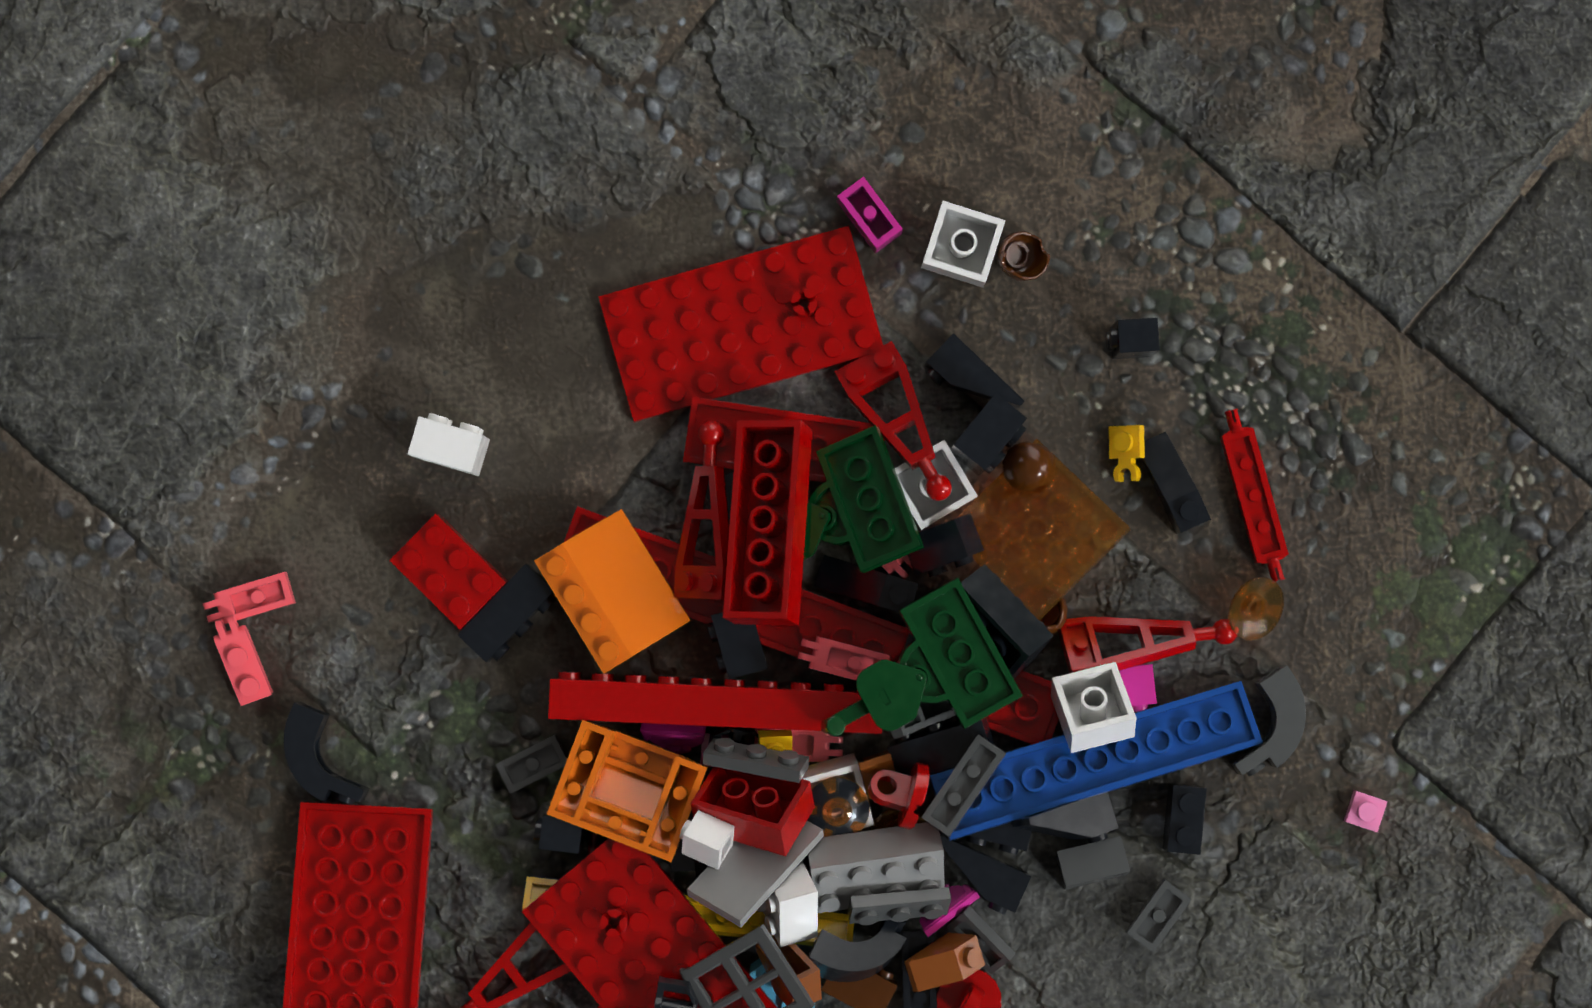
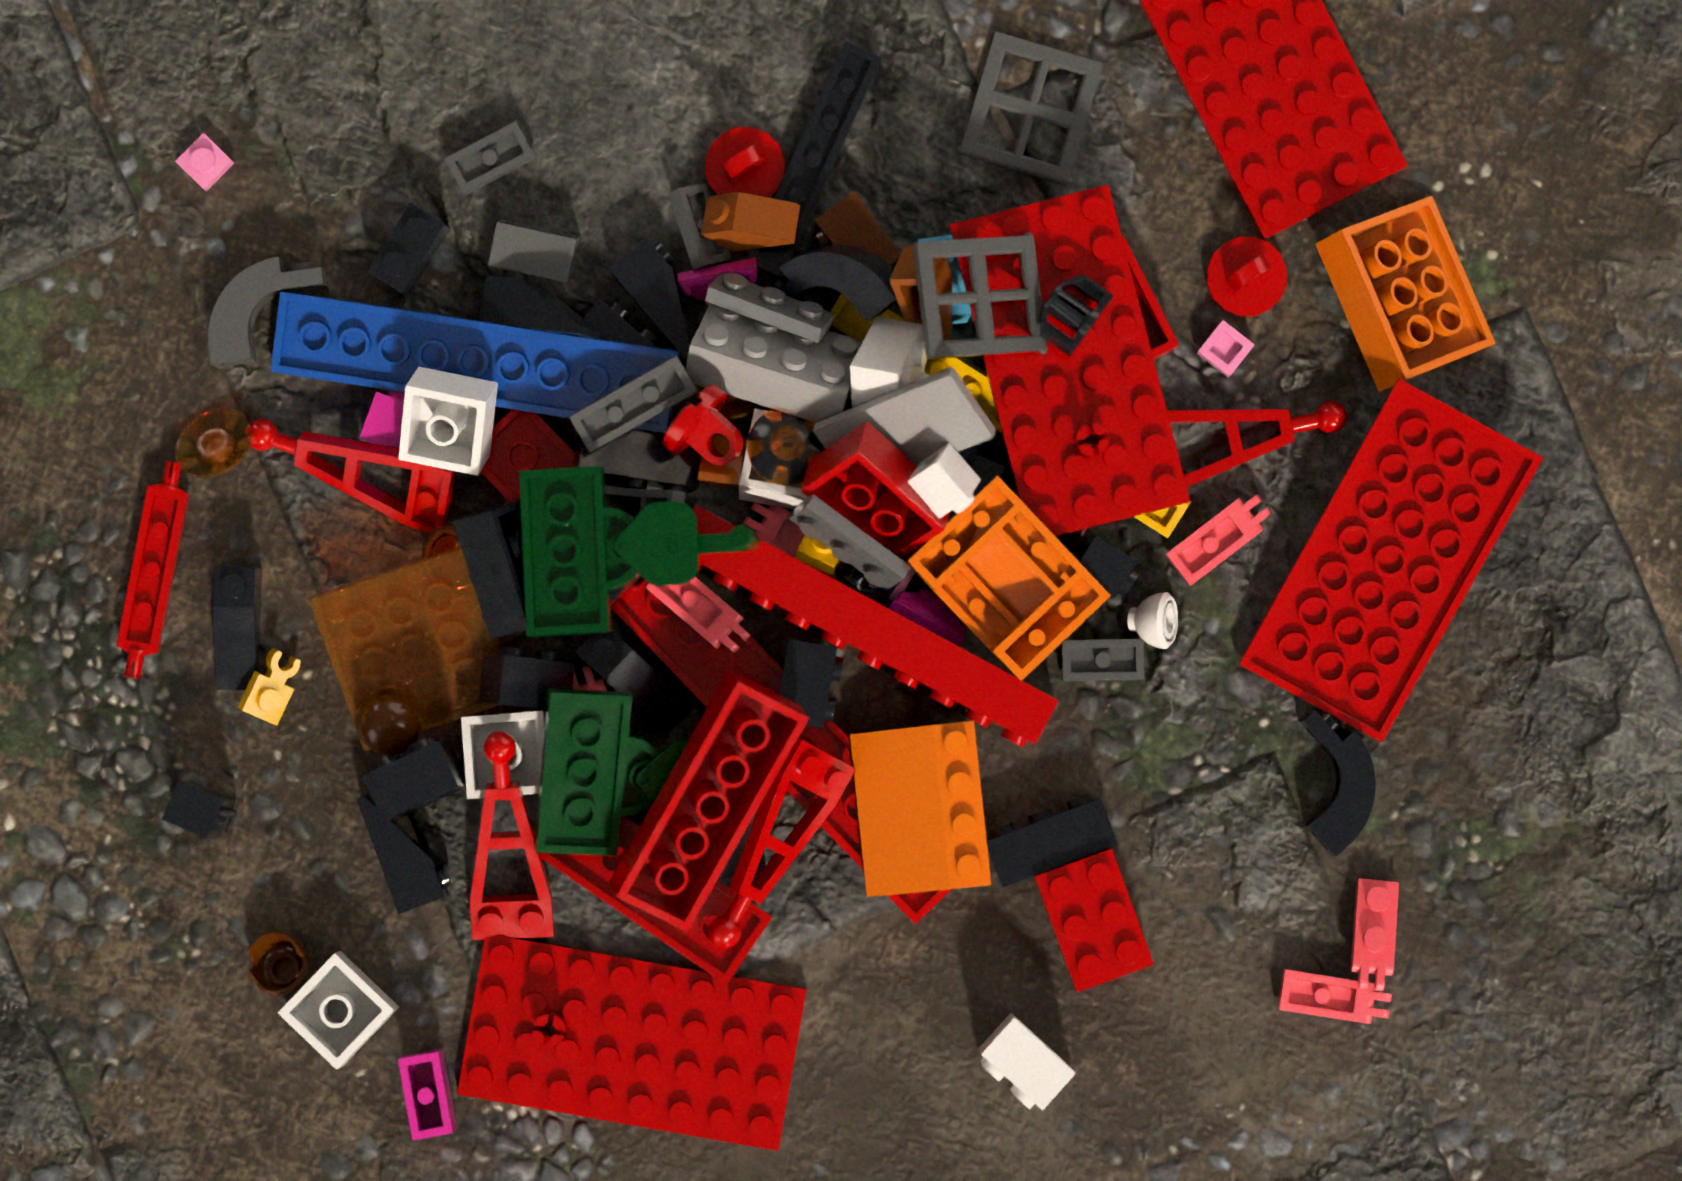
camera: 155 degrees left, 0 degrees up
(490, 892) = (1217, 539): none -> coral hinge
(508, 811) = (1155, 620): none -> white brick

